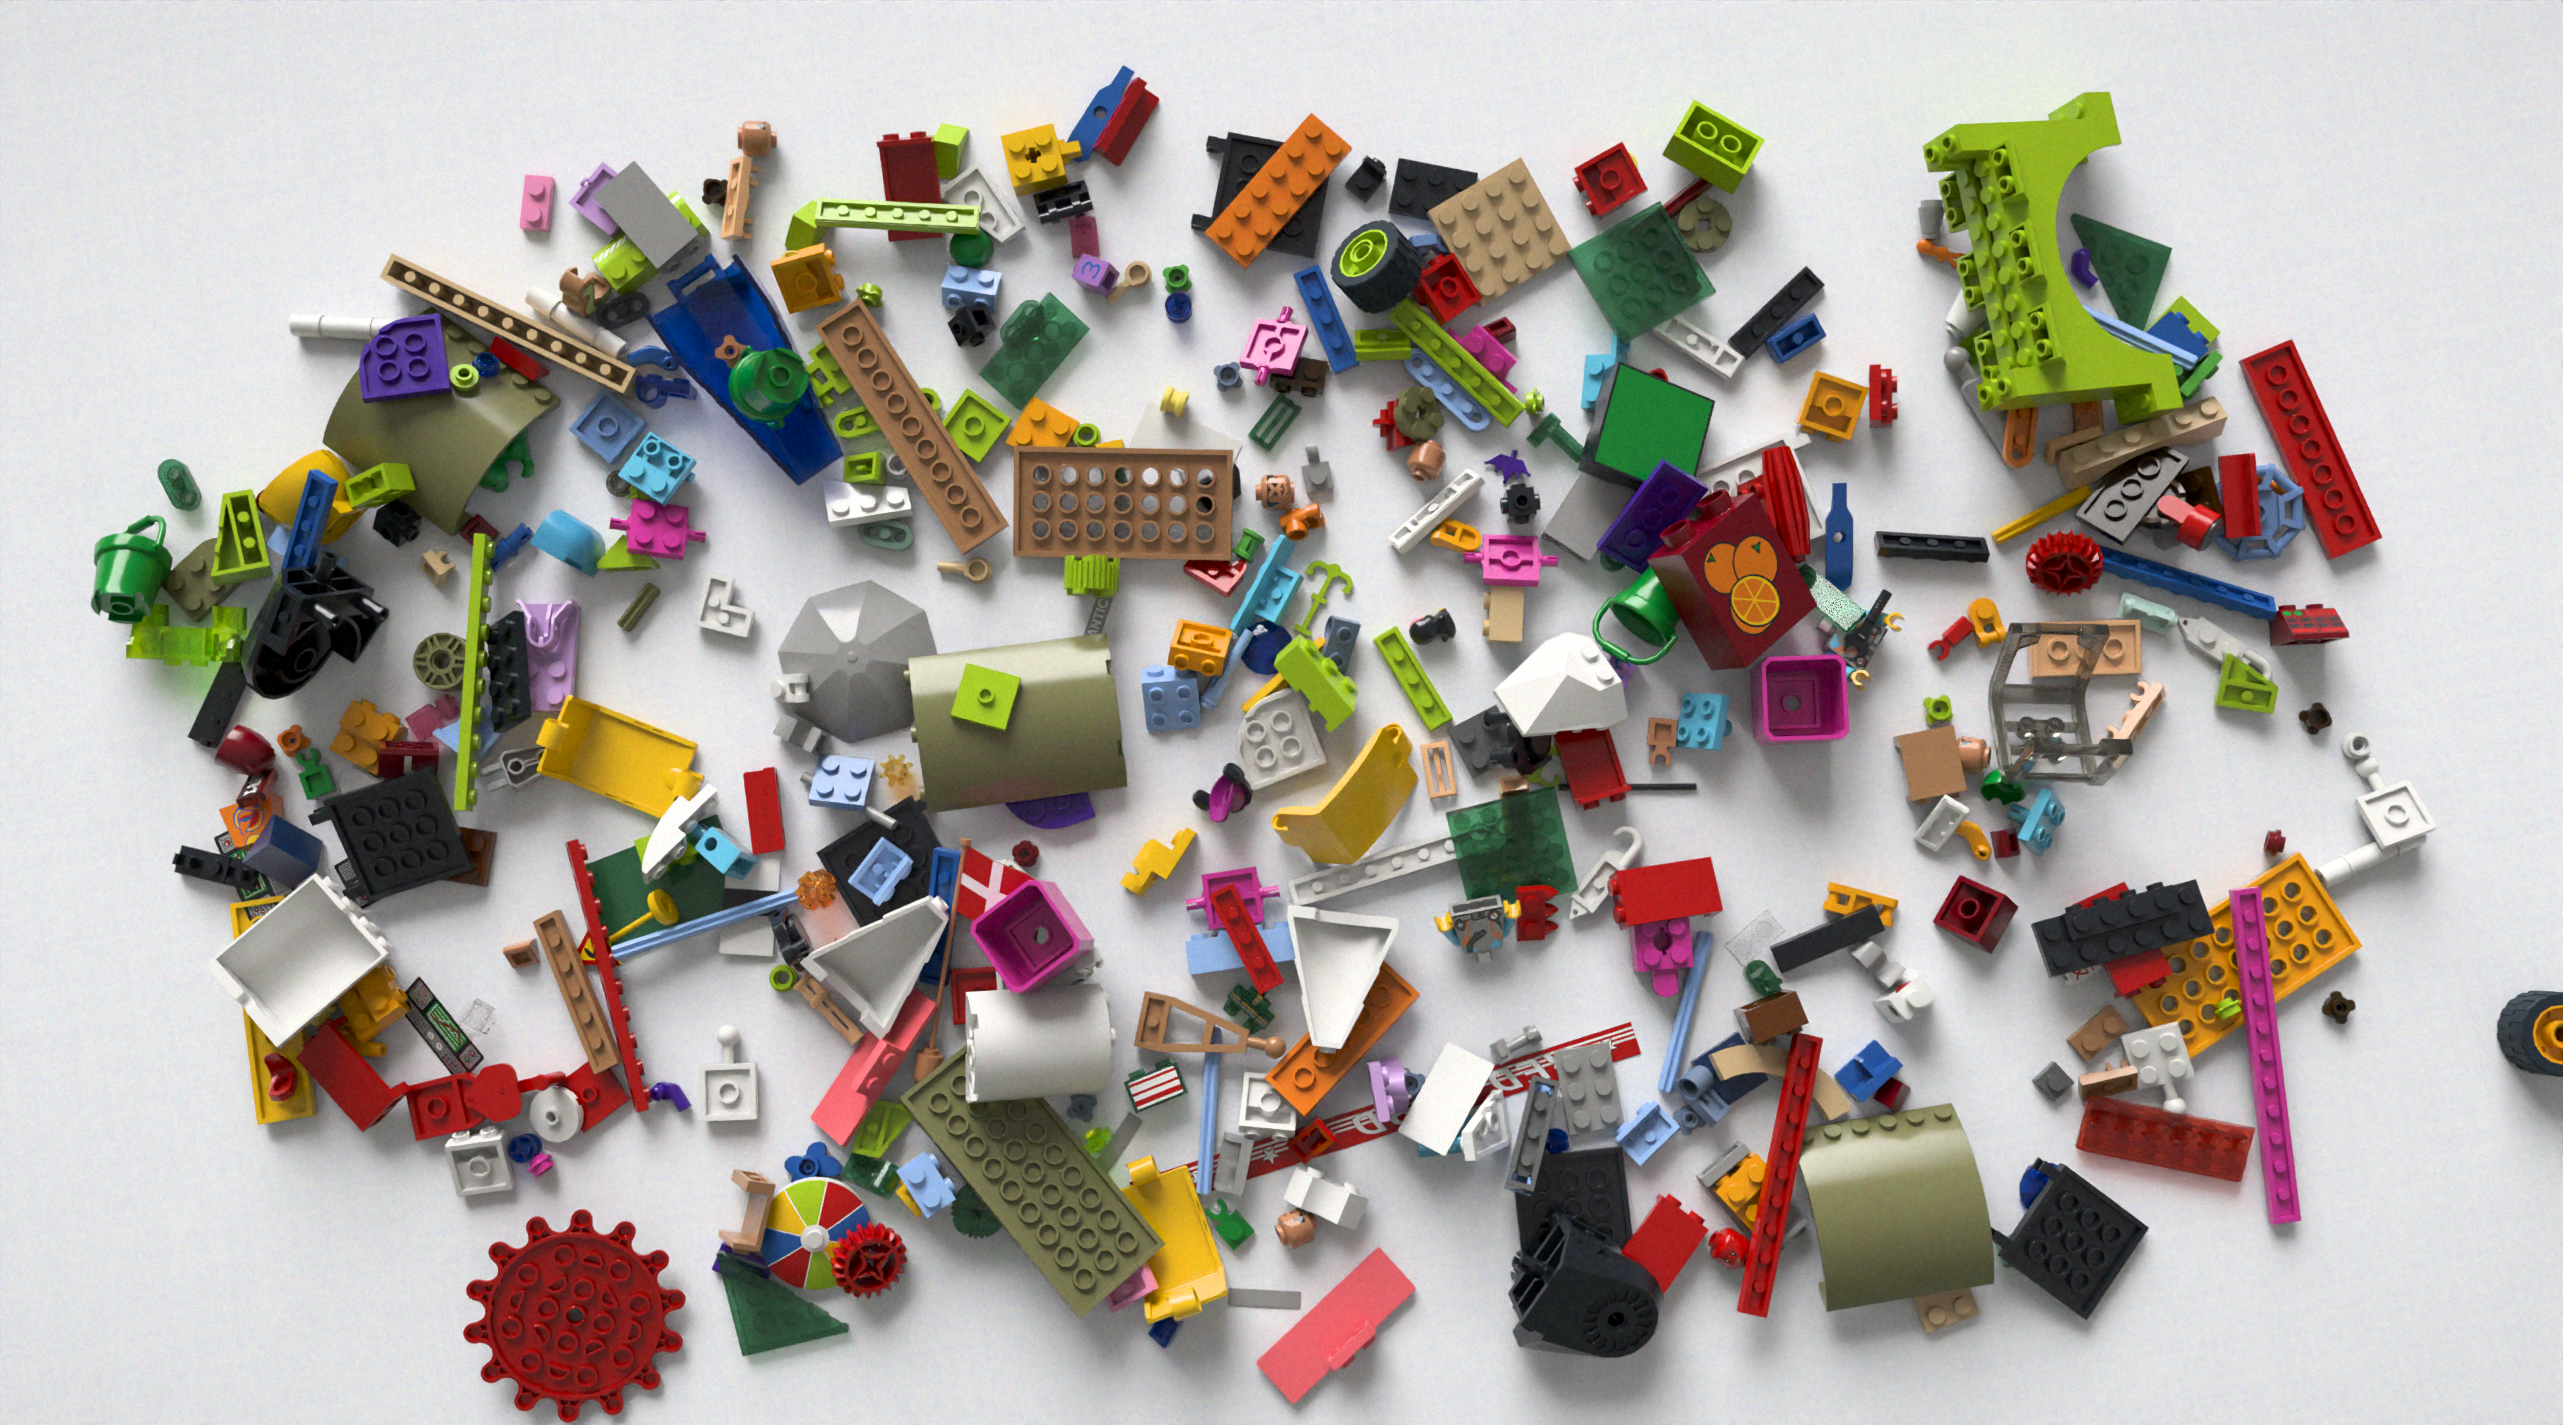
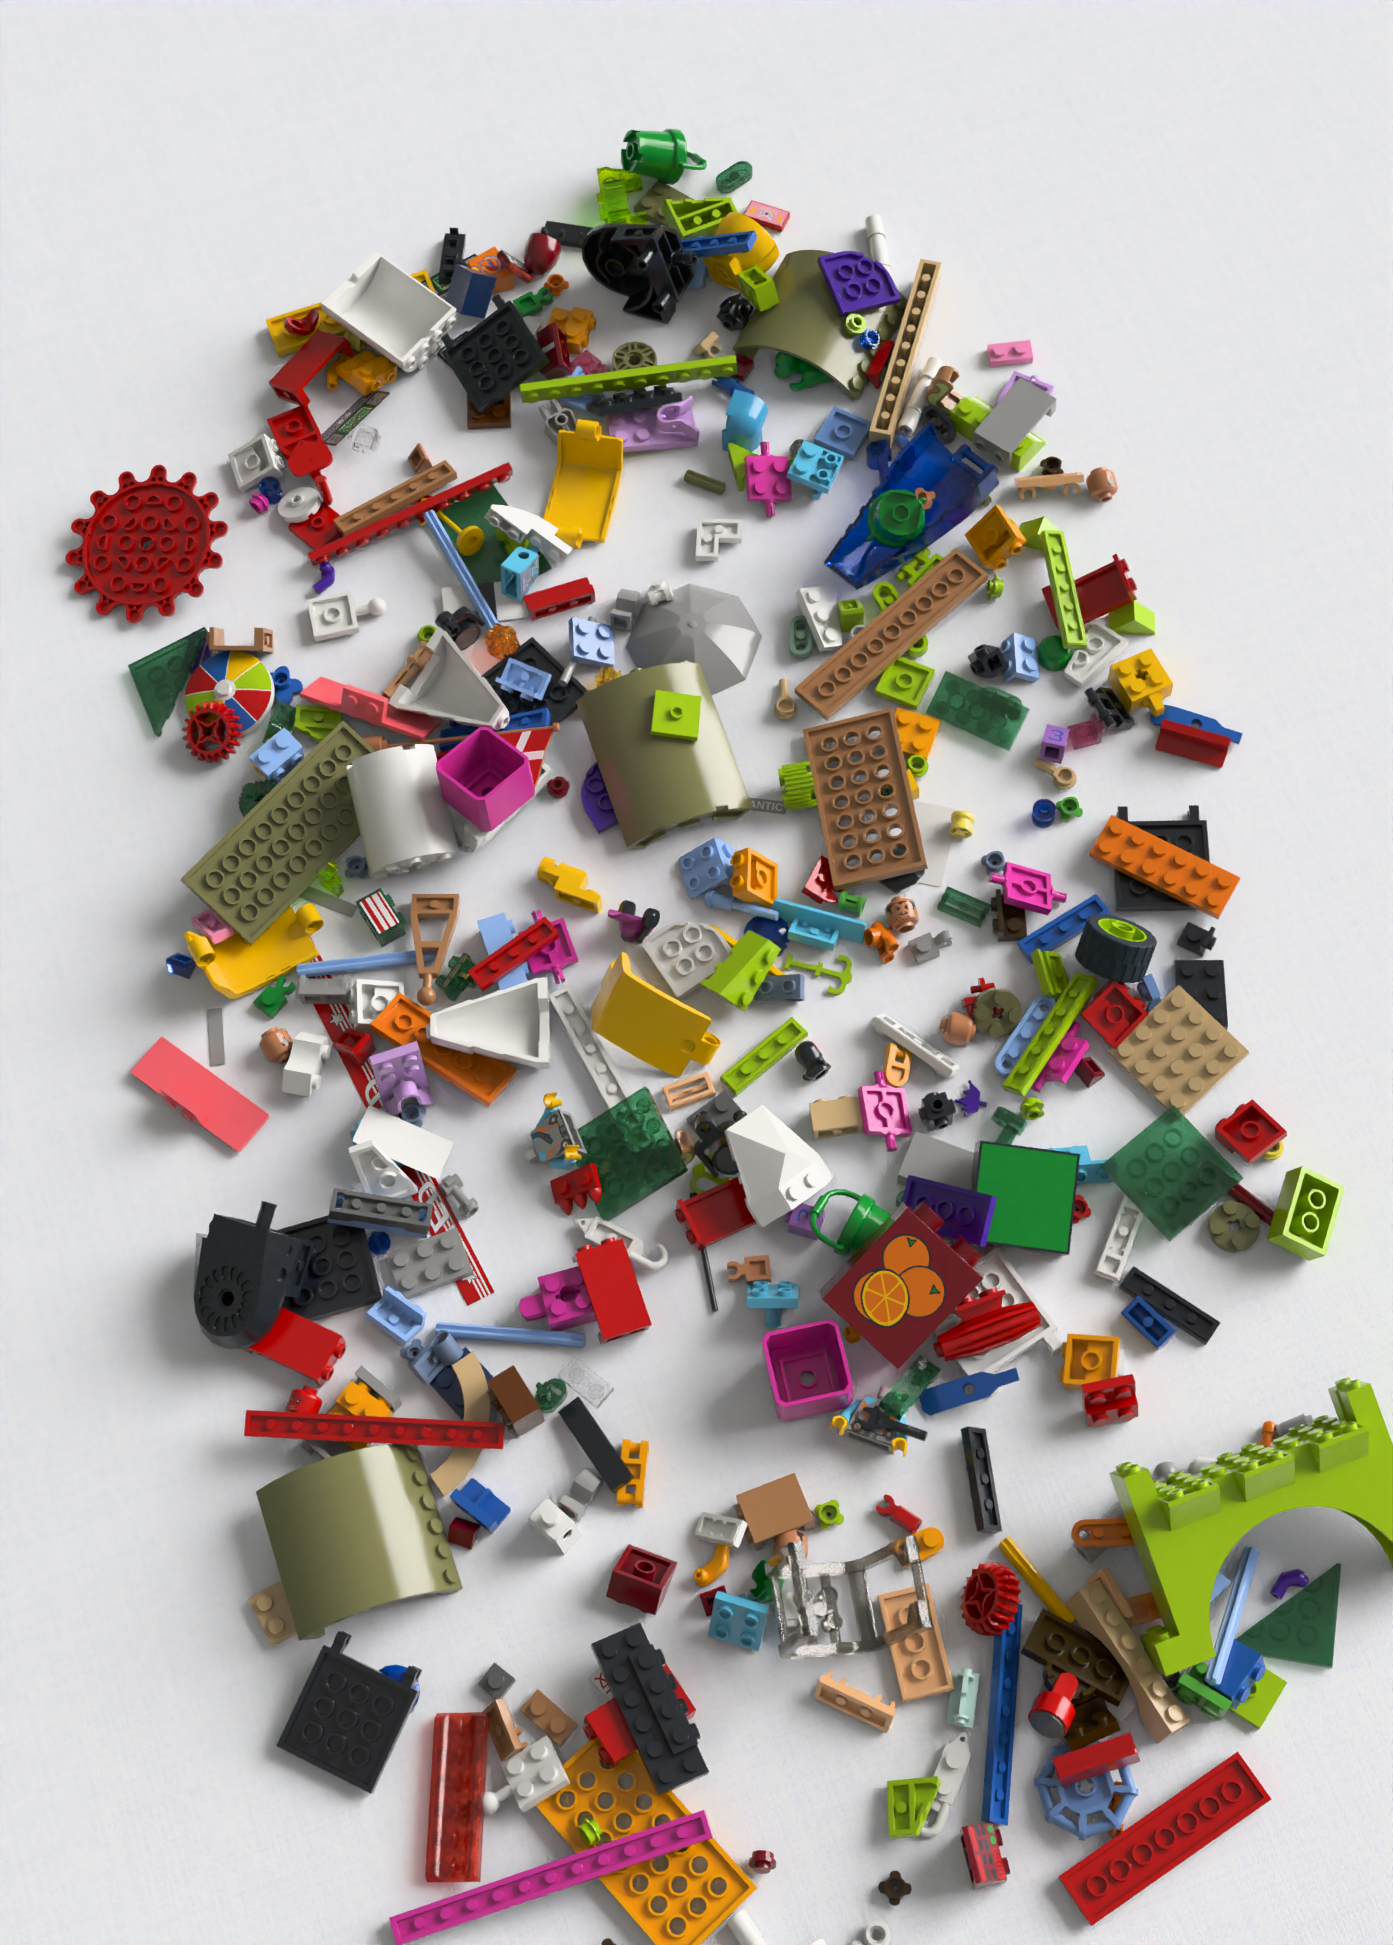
camera: 85 degrees right, 20 degrees down
(250, 456) = (767, 215): none -> tile

